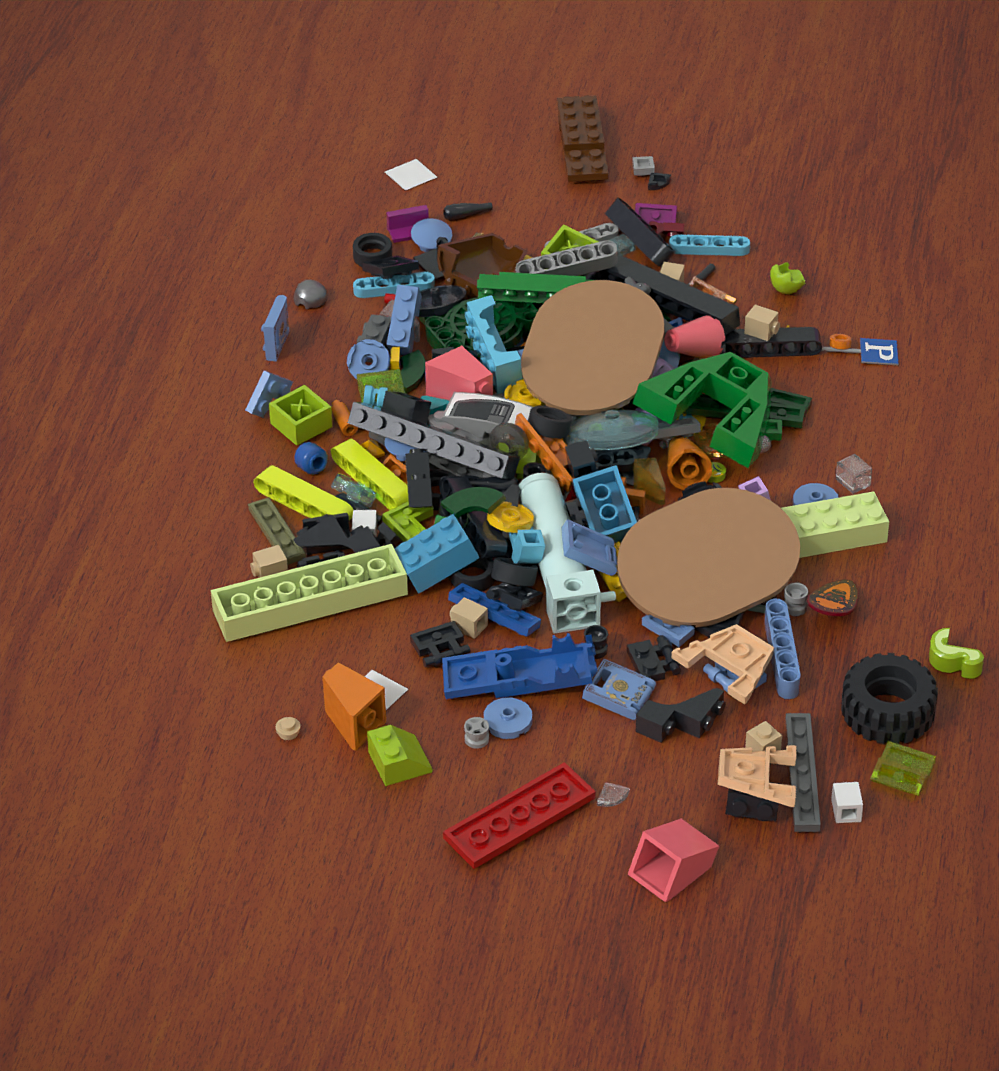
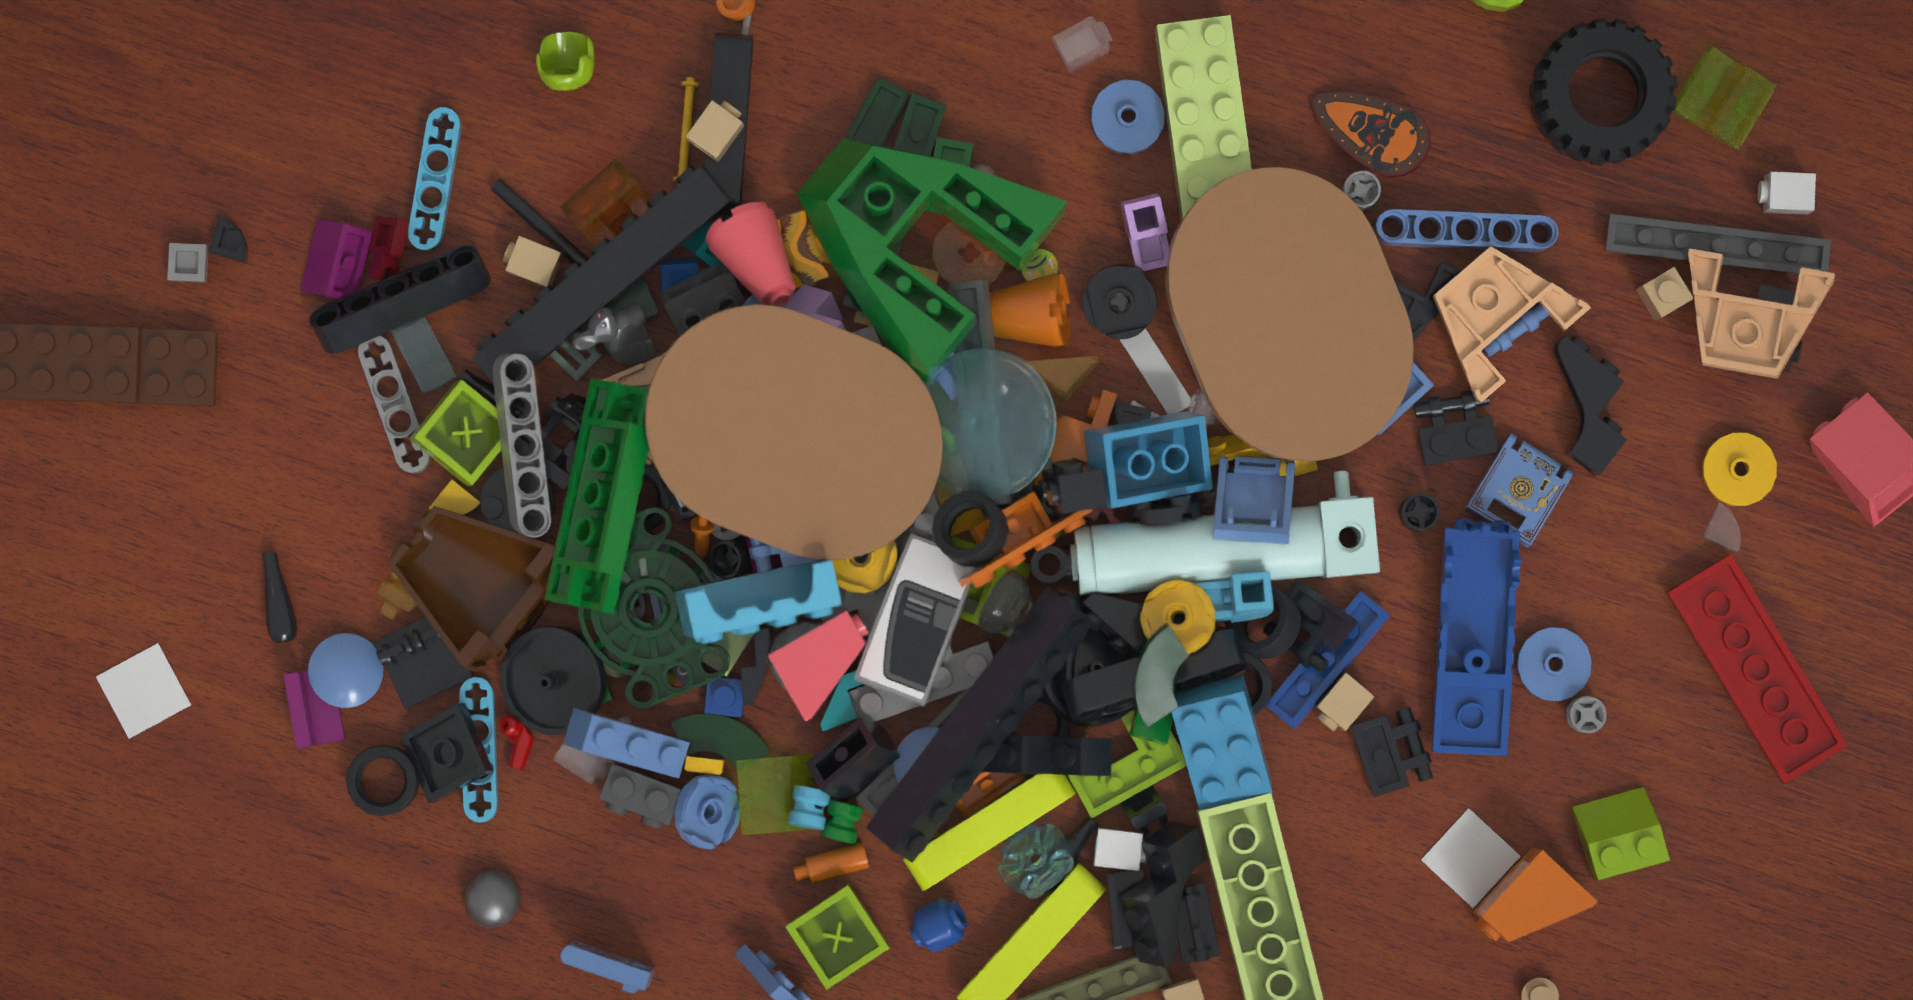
camera: 90 degrees left, 45 degrees up
(654, 798) = (1720, 475): none -> yellow plate

